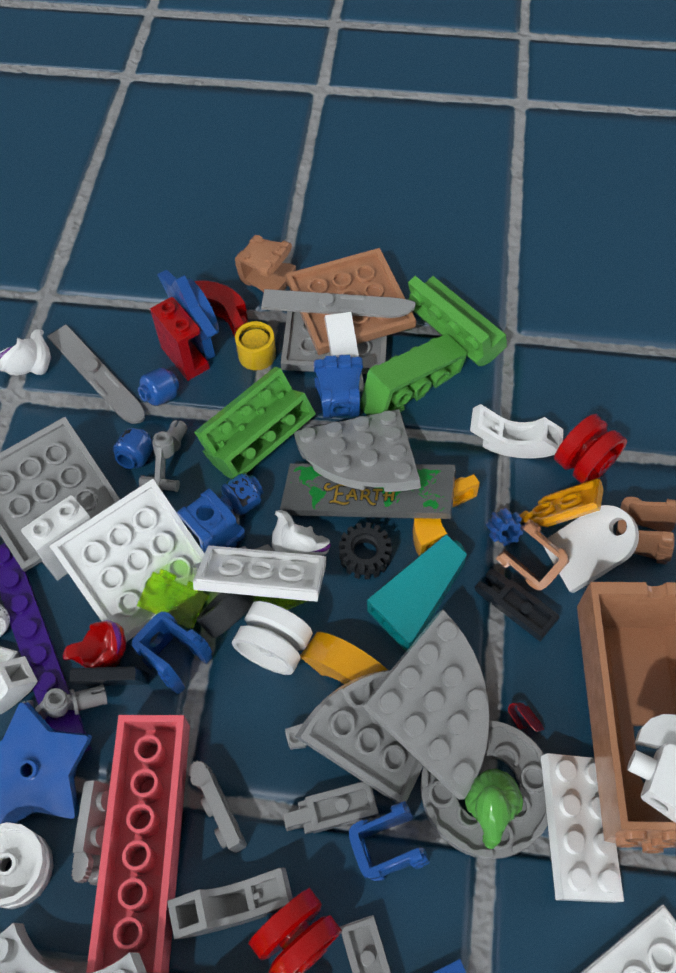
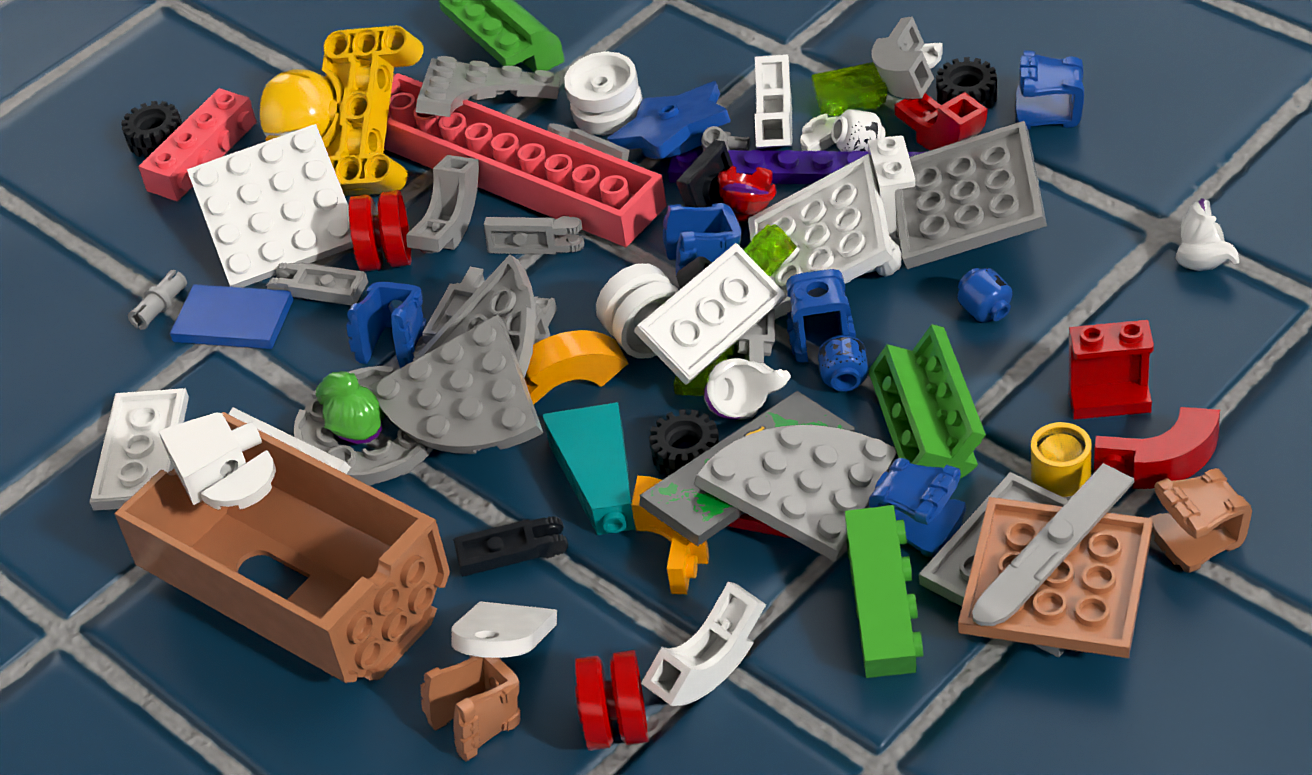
camera: 130 degrees right, 15 degrees down
(97, 375) = (1152, 307): light grey piece -> none
(158, 386) = (1054, 343): blue head -> none
(164, 446) = (954, 310): light grey pin -> none
(196, 306) = (1137, 378): blue plate -> none
(342, 337) = (967, 521): white tile -> none
(453, 316) = (938, 684): bright green brick -> none
(505, 527) = (598, 575): blue gear -> none
(507, 559) = (535, 565): nougat piece -> none
(527, 714) = (398, 484): red piece -> none
(566, 504) = (565, 630): light orange tile -> none

